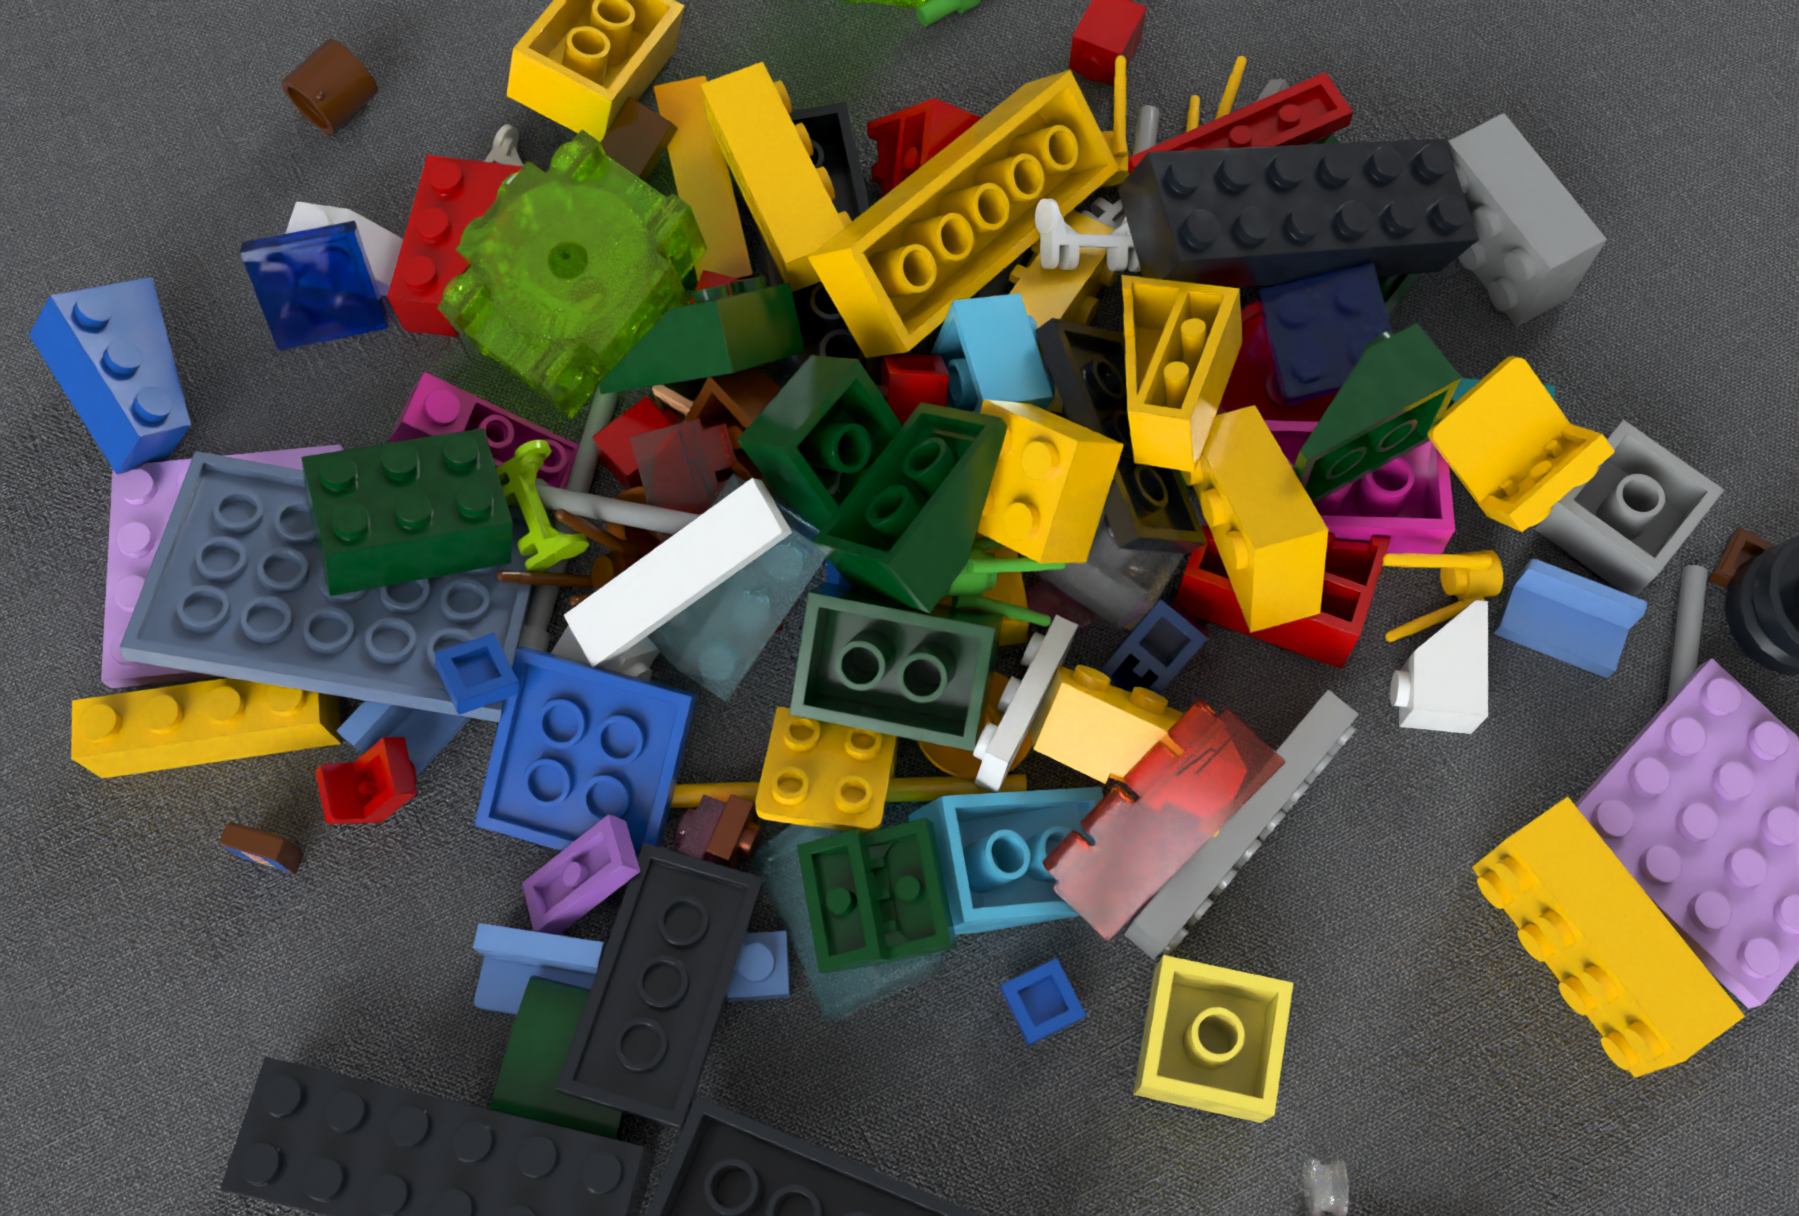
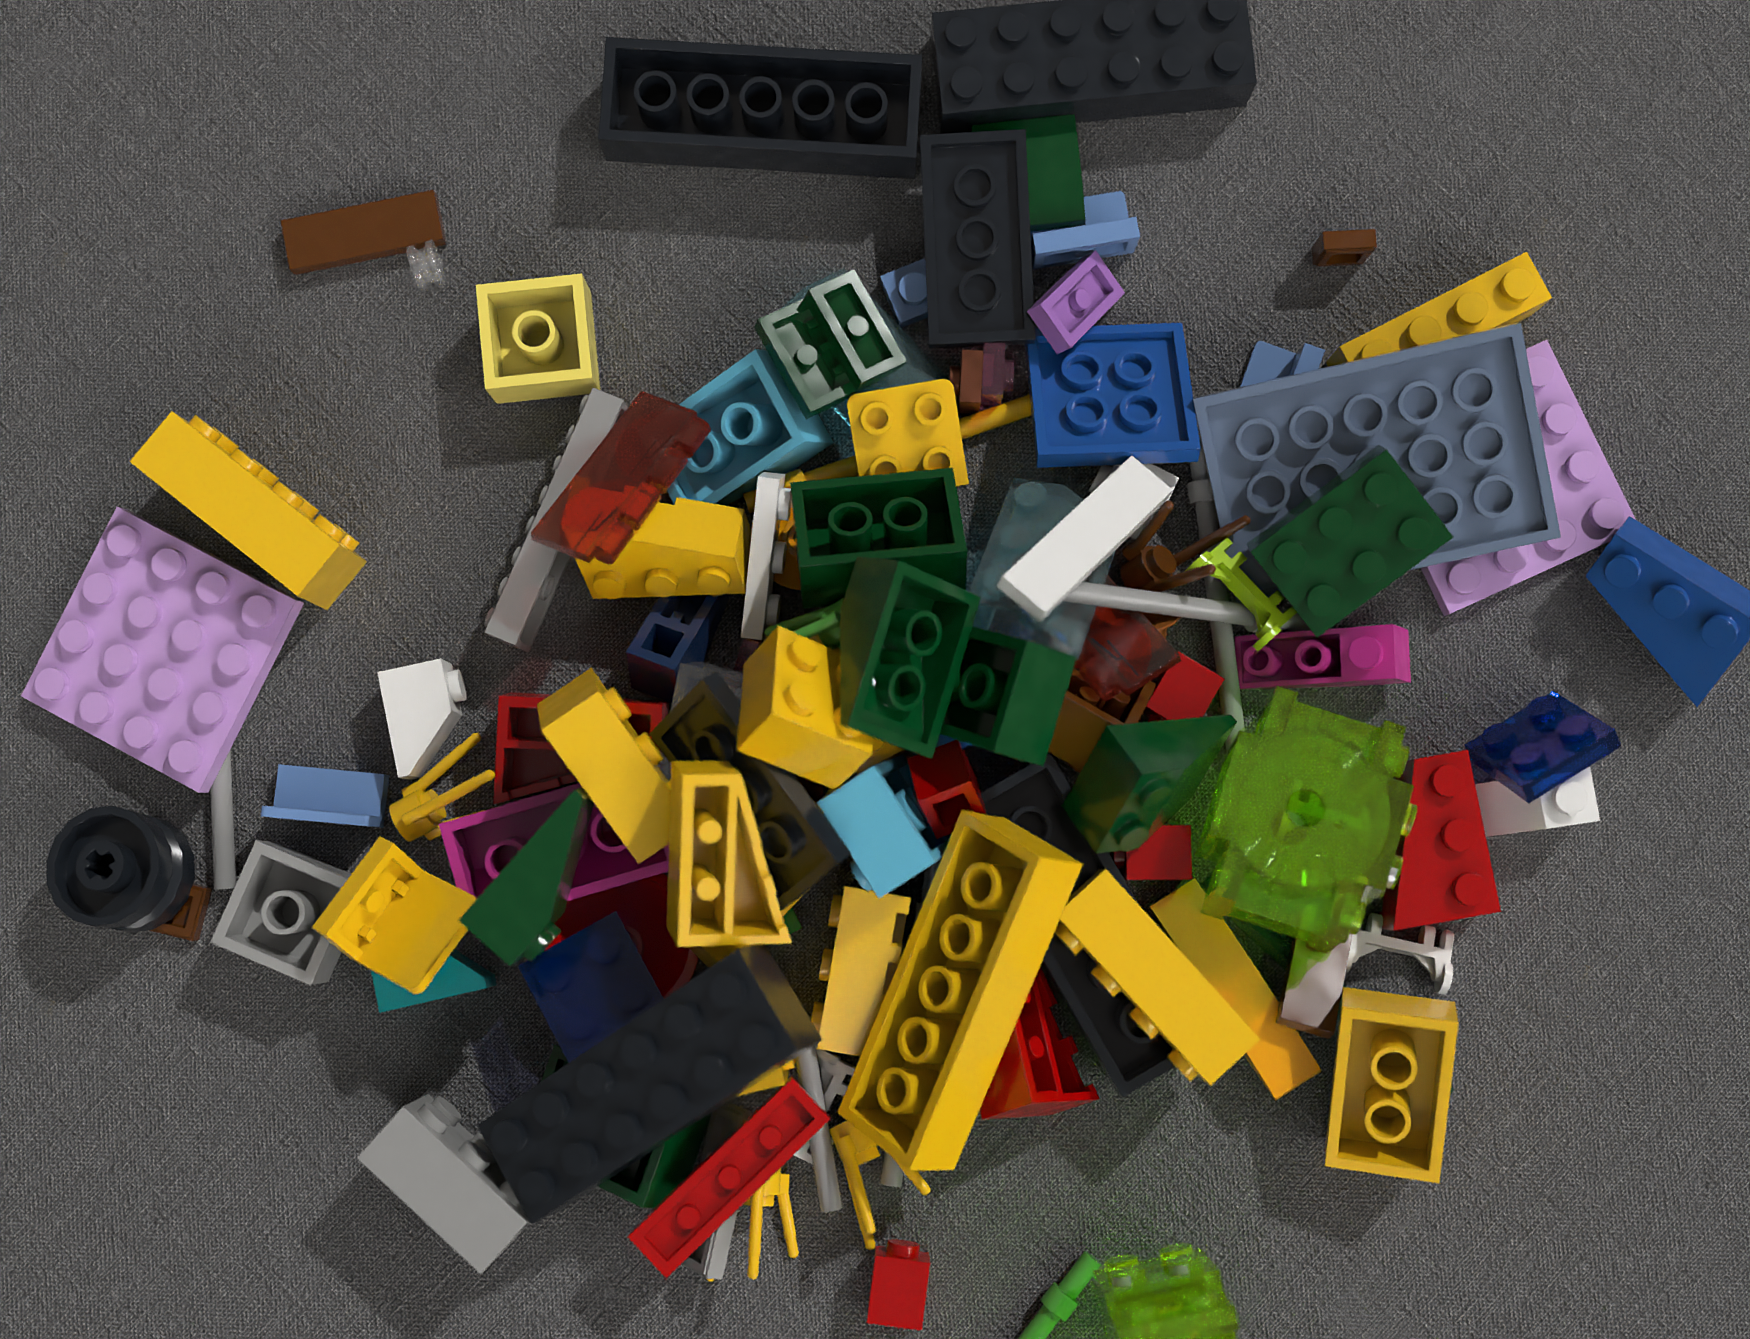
camera: 160 degrees right, 15 degrees up
(330, 86) = (1637, 971): reddish brown piece -> none
(370, 786) = (1282, 323): red bracket -> none
(476, 673) = (1223, 413): blue plate -> none
(1042, 1002) = (680, 333): blue plate -> none
(1061, 243) = (861, 993): white piece -> none

